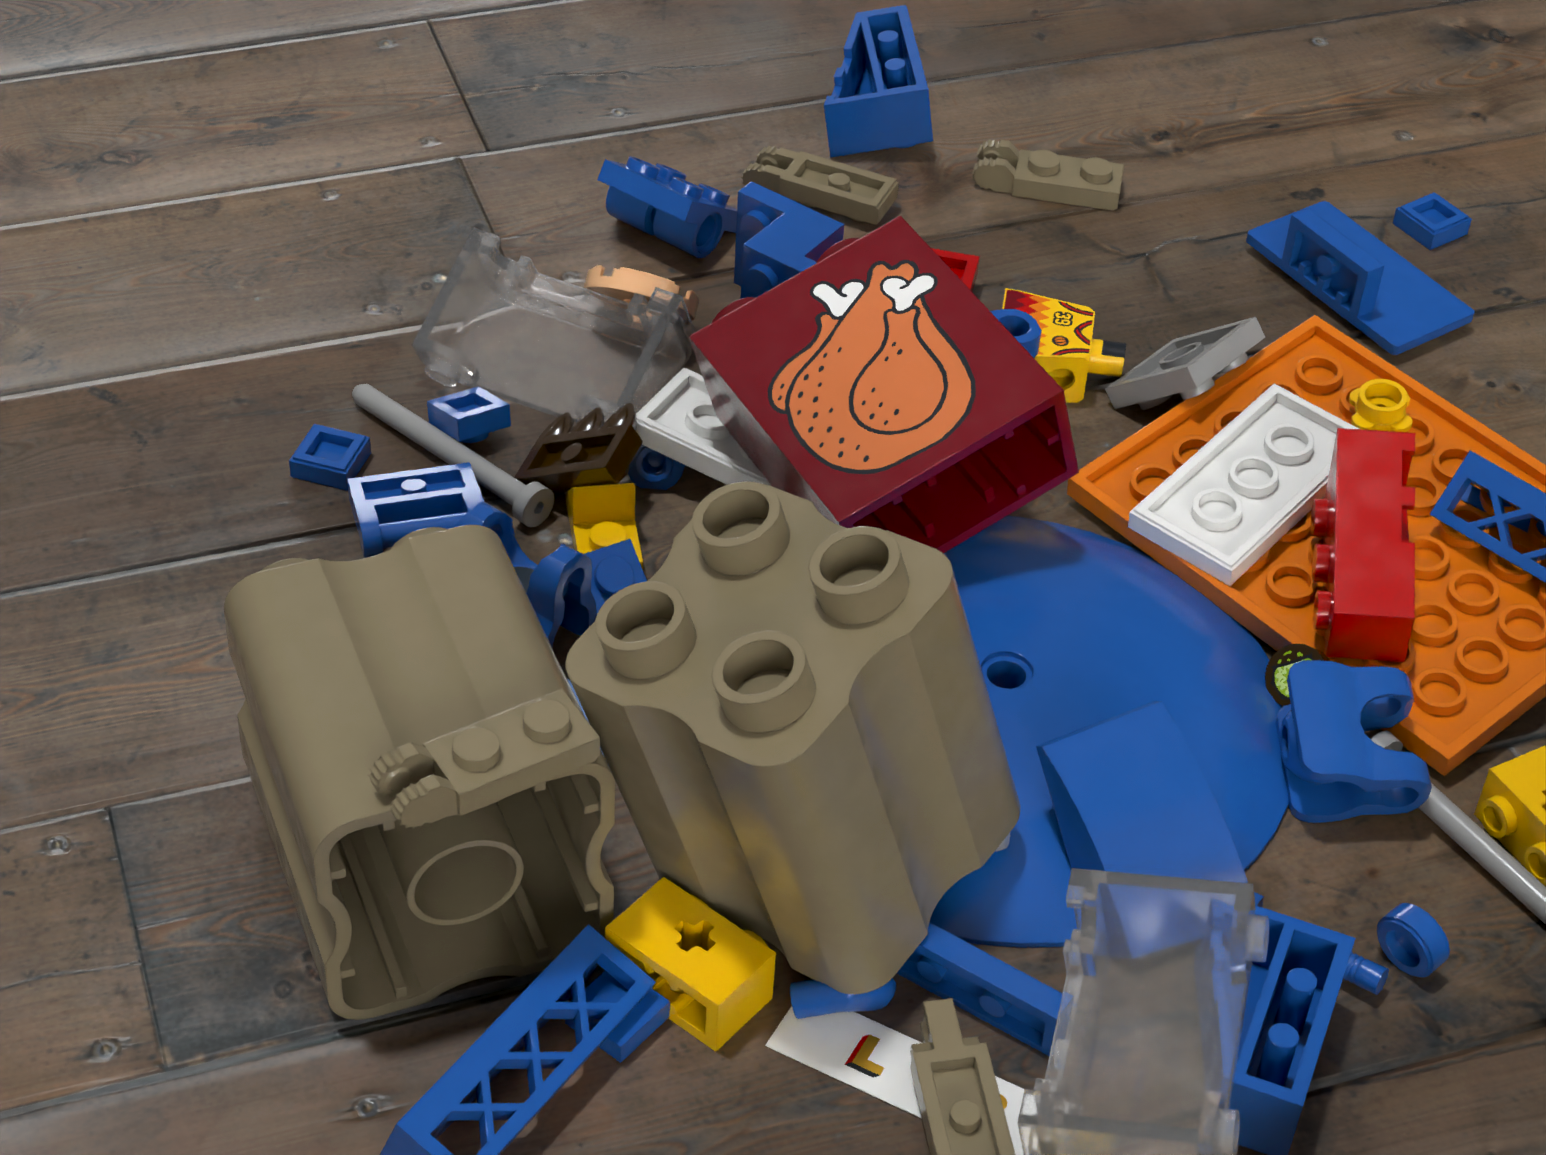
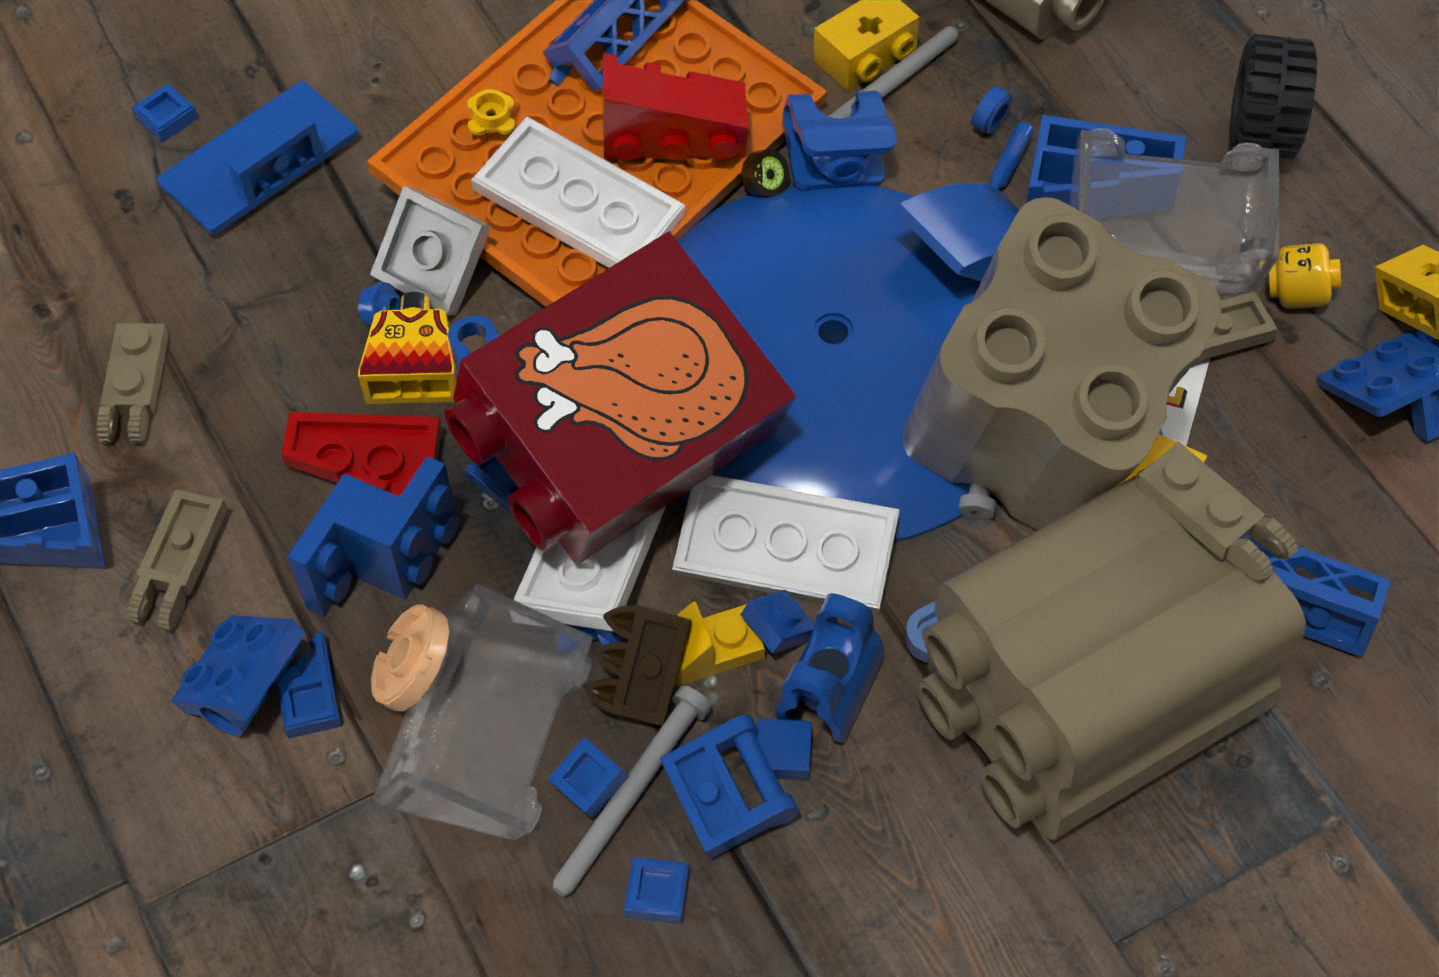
camera: 95 degrees left, 15 degrees up
(649, 254) = (309, 692): none -> blue tile
(1128, 325) = (377, 298): none -> blue plate

